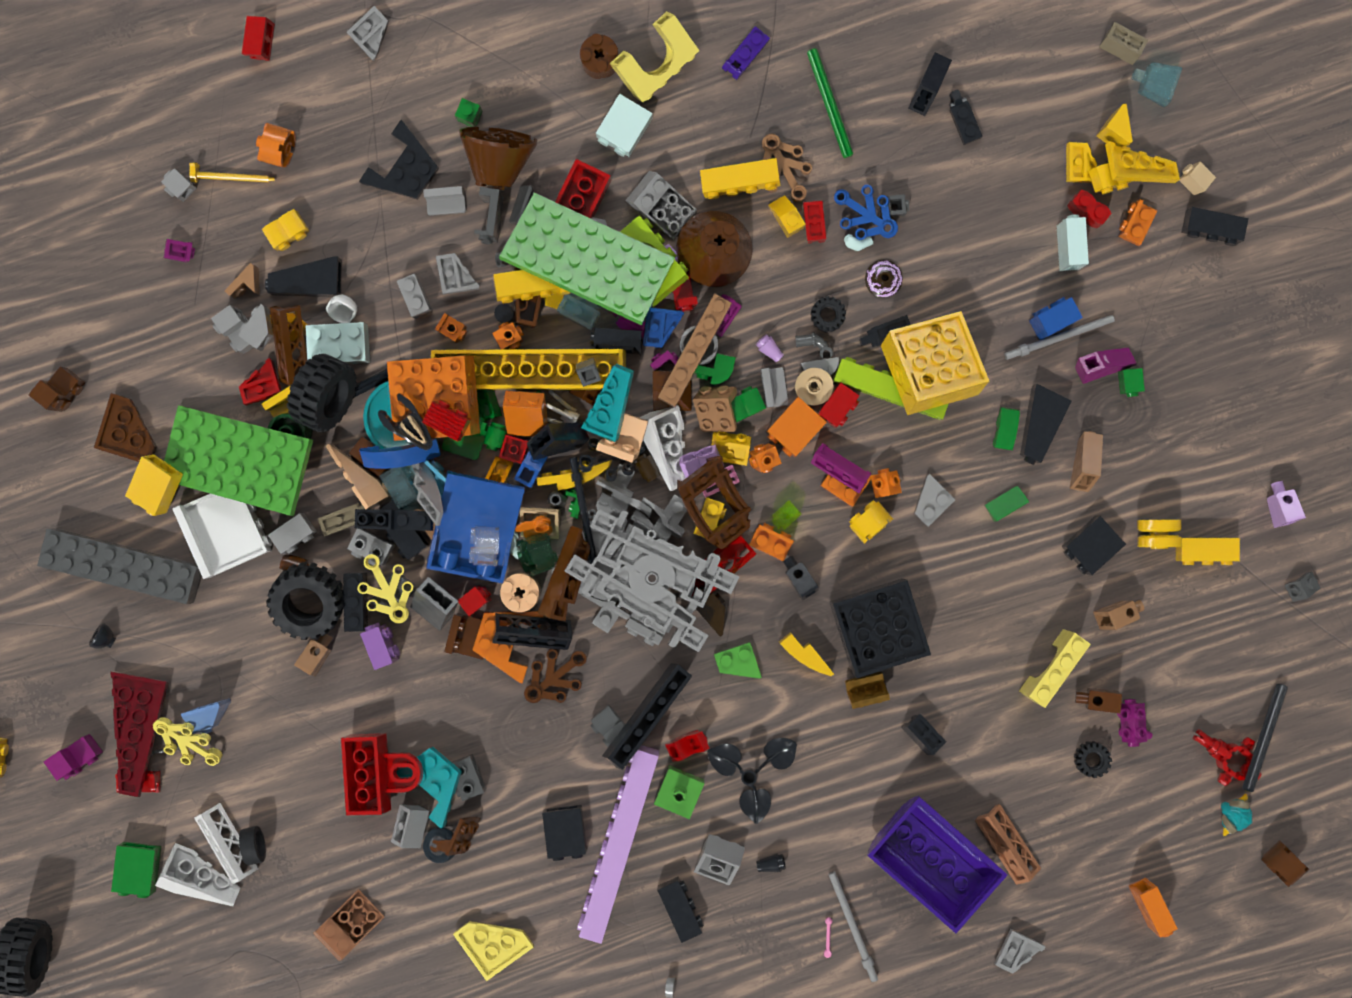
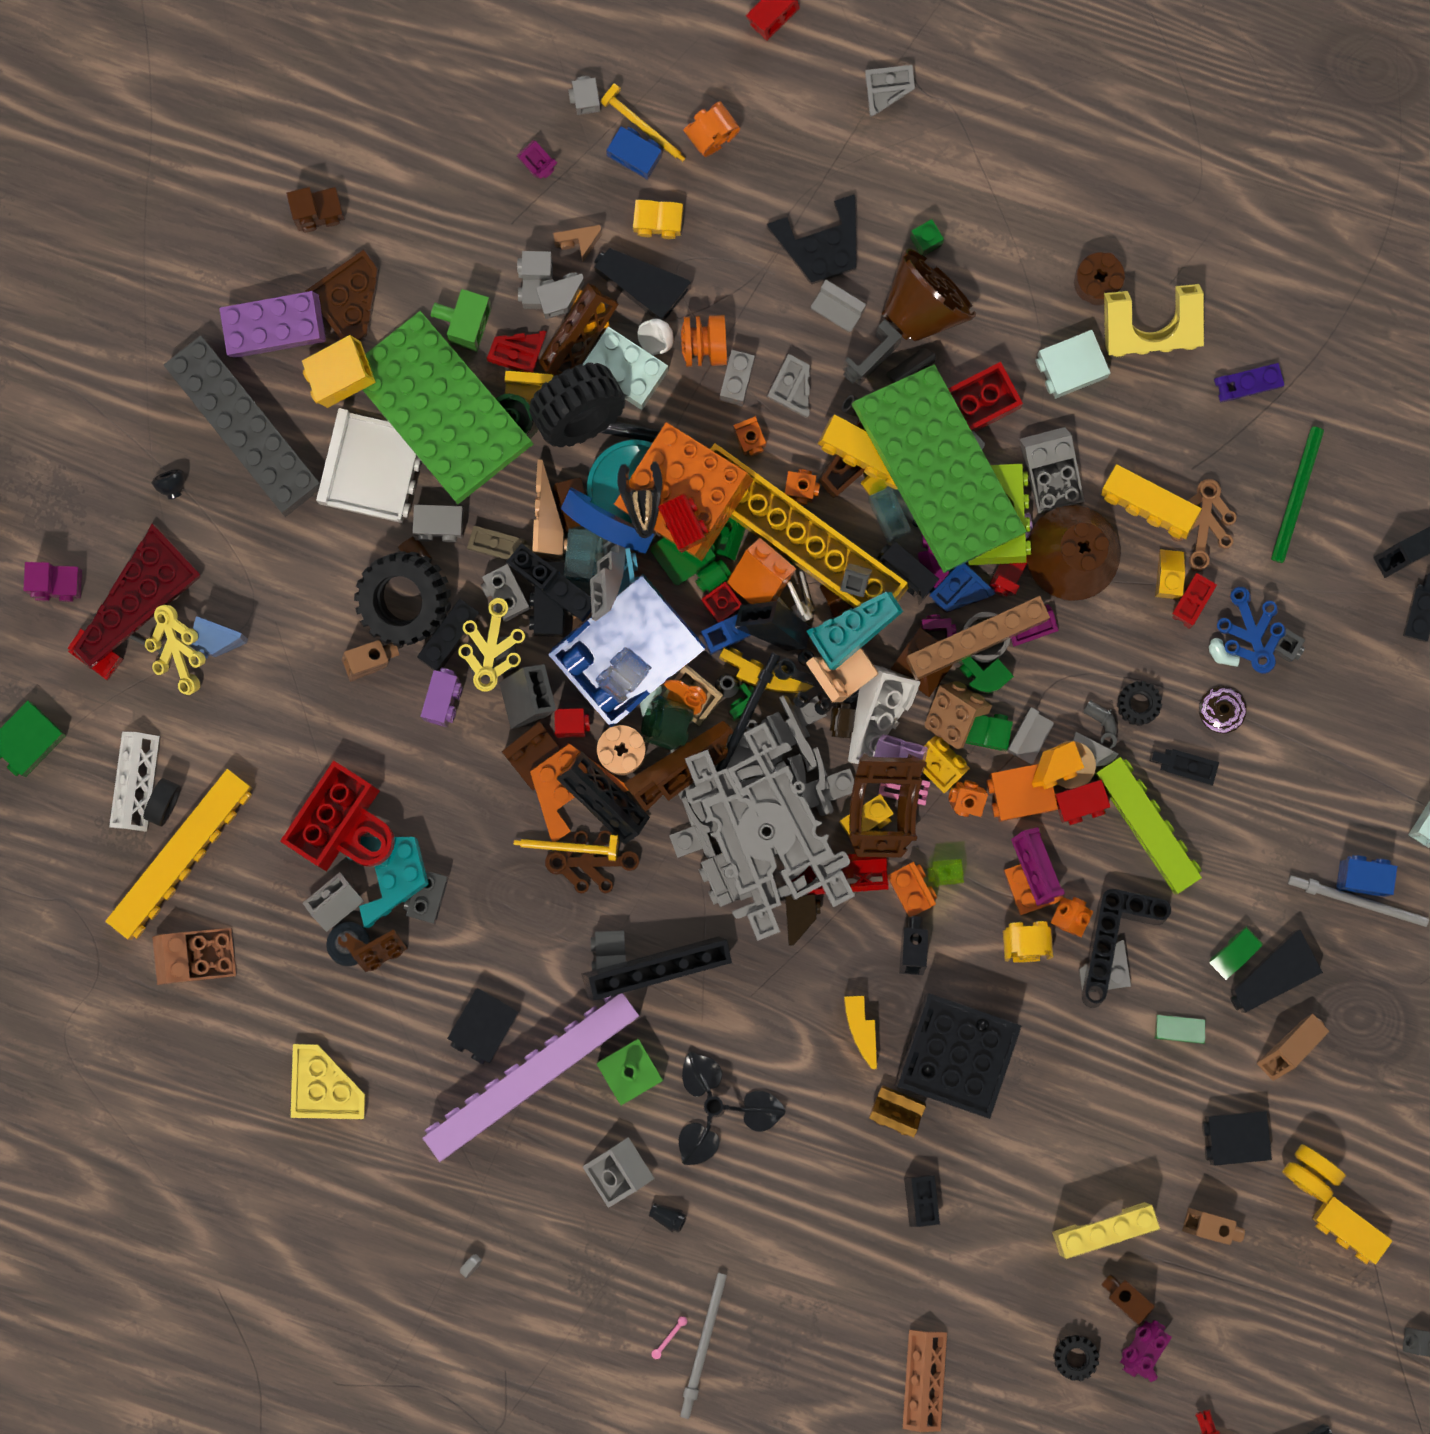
camera: 35 degrees right, 5 degrees down
(88, 486) = (272, 324): none -> medium lavender brick
(193, 877) = (74, 787): white wedge -> none
(211, 389) = (467, 319): none -> bright green brick
(237, 198) = (634, 152): none -> blue brick
(290, 869) = (179, 854): none -> yellow brick
(375, 288) = (704, 340): none -> orange wheel
(500, 470) = (693, 612): light orange slope -> none
(503, 313) = (813, 460): black tile -> none
(562, 661) = (611, 850): none -> yellow piece
(680, 909) = (542, 1193): black brick -> none
(687, 745) = (673, 1031): red brick -> none
(738, 661) = (788, 986): bright green wing -> none
(769, 348) = (1055, 693): lavender cone -> none
(805, 393) = (1057, 763): none -> light orange slope
(920, 479) = (1109, 937): none -> black beam
(934, 363) = (1209, 829): yellow piece -> none
(935, 863) = (838, 1337): dark purple container -> none
(1104, 363) = (1383, 960): magenta slope -> none
(1131, 382) = (1398, 1000): green brick -> none

